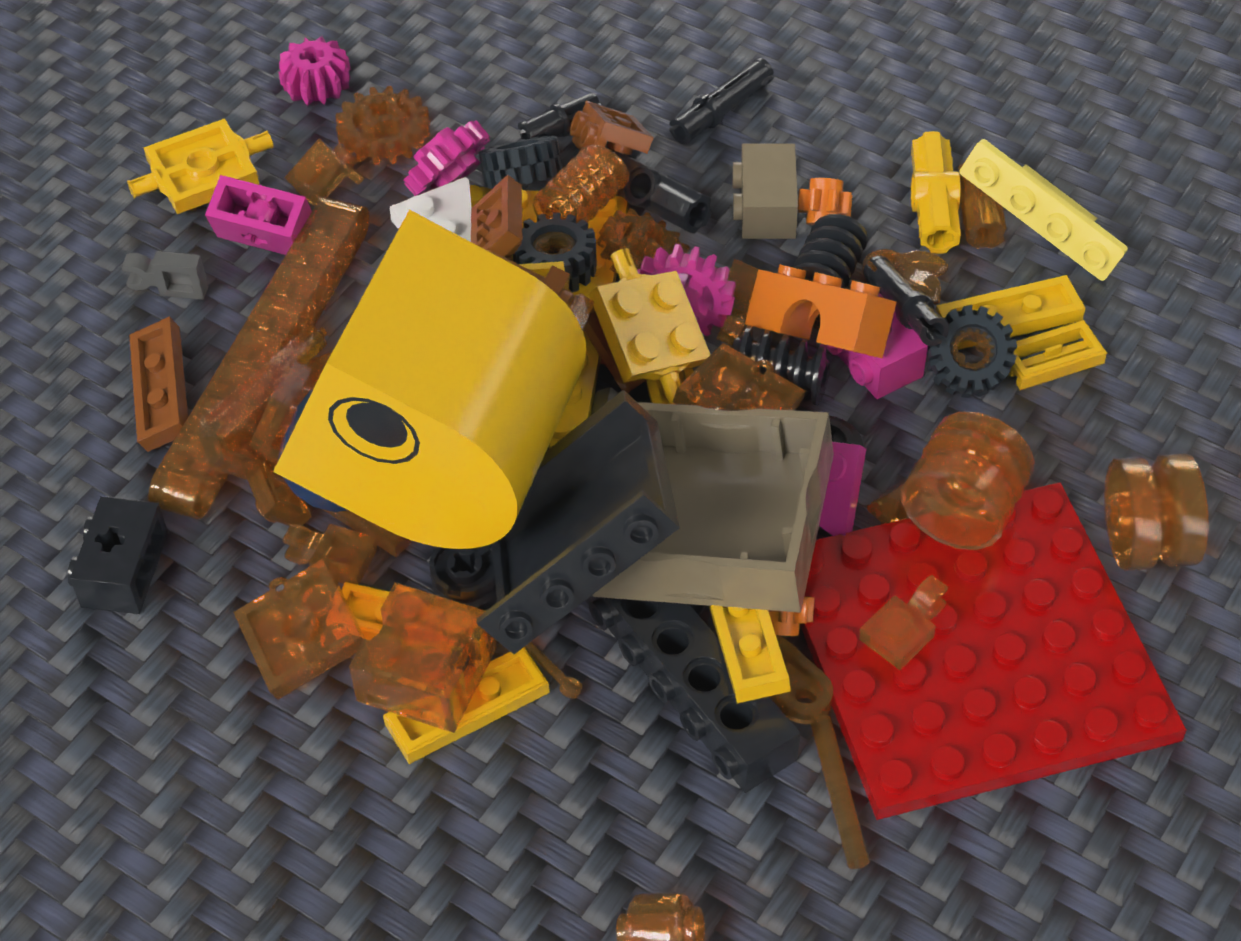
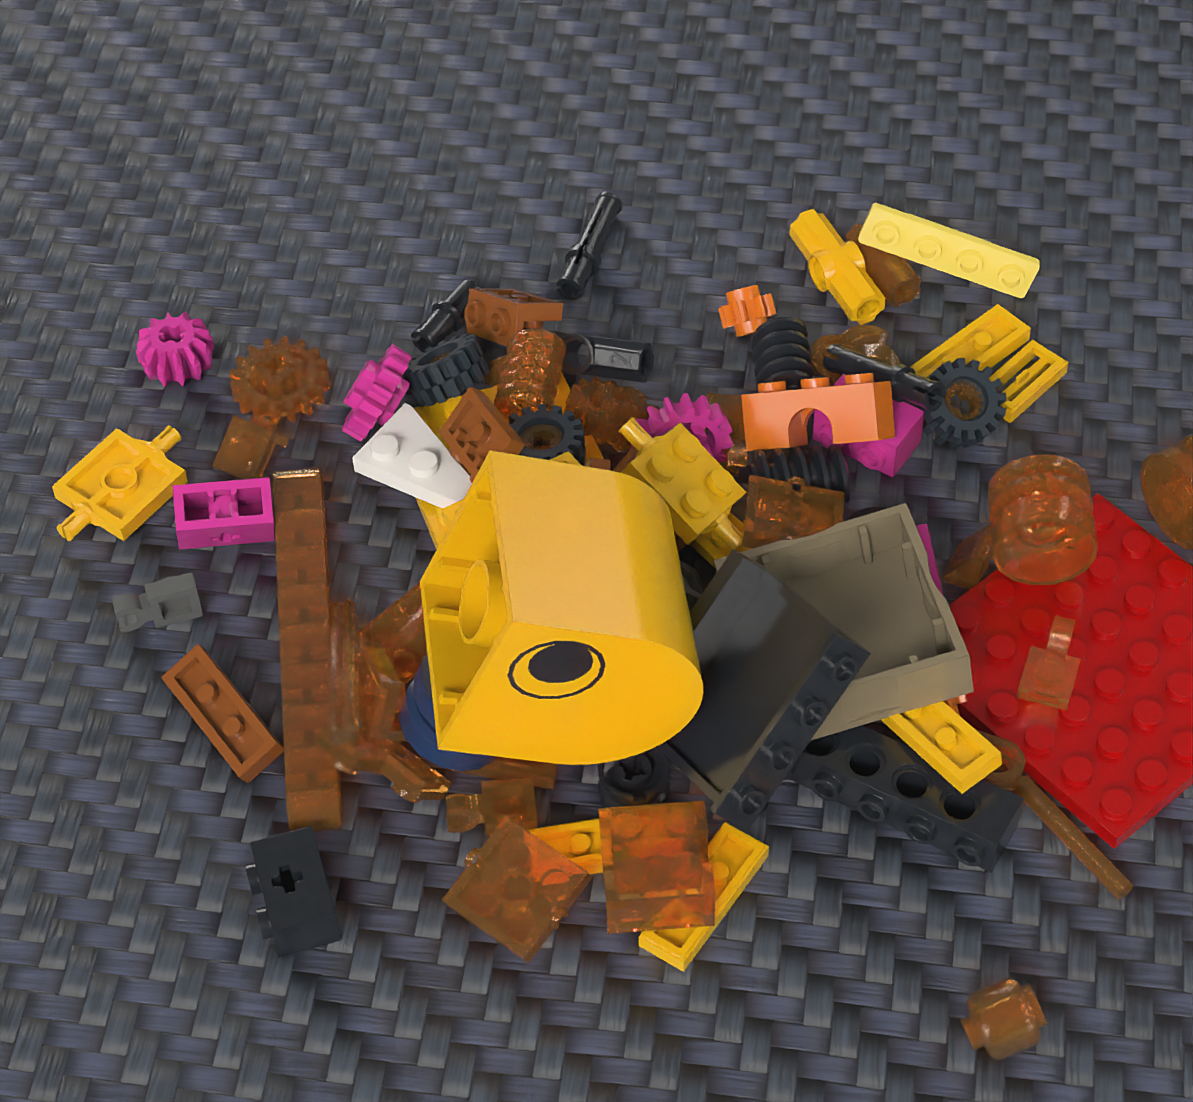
camera: 25 degrees left, 0 degrees up
(569, 686) = (784, 841): clear orange hinge -> none
(767, 191) = (687, 318): dark tan brick -> none

